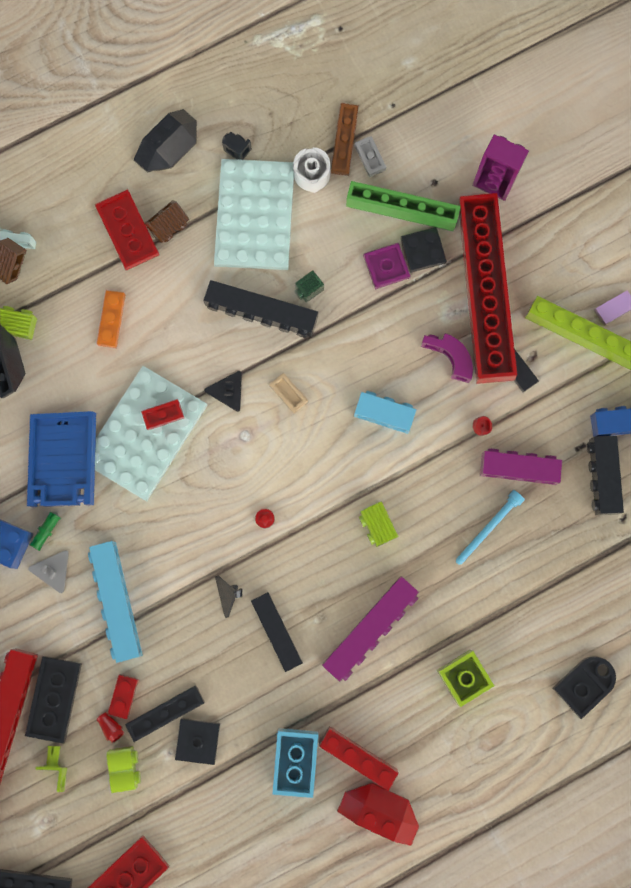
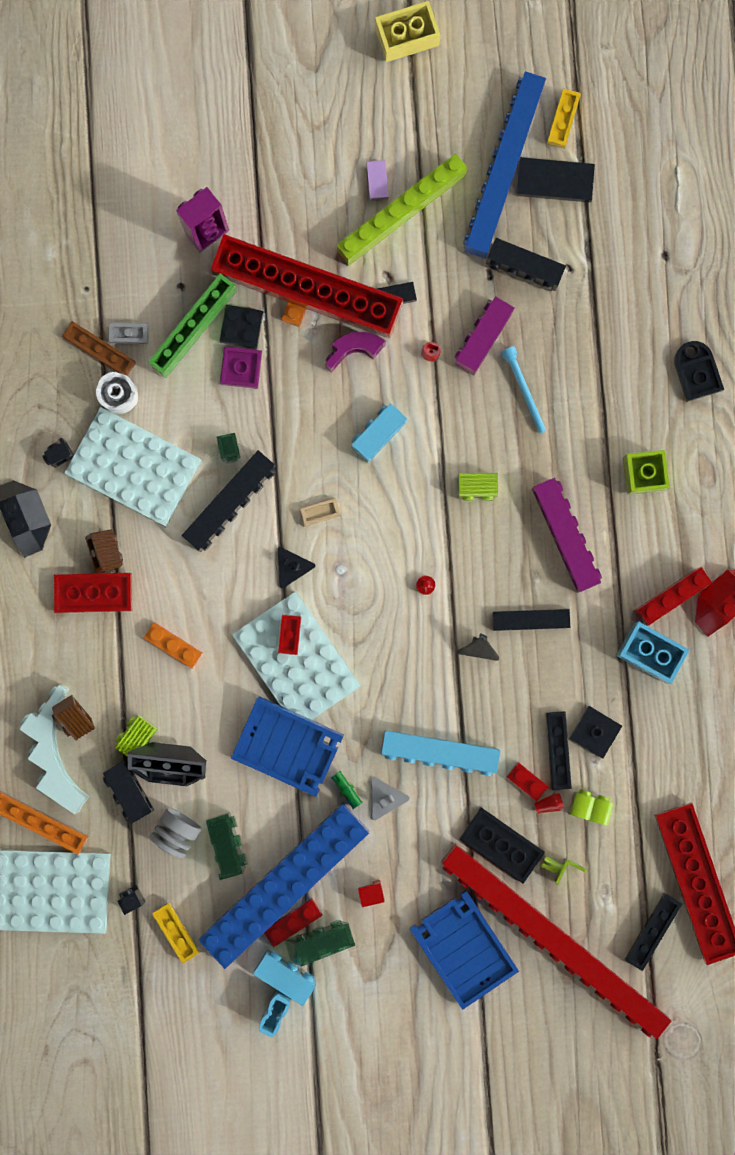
camera: 70 degrees left, 5 degrees up
(456, 289) = (293, 314): none -> orange plate

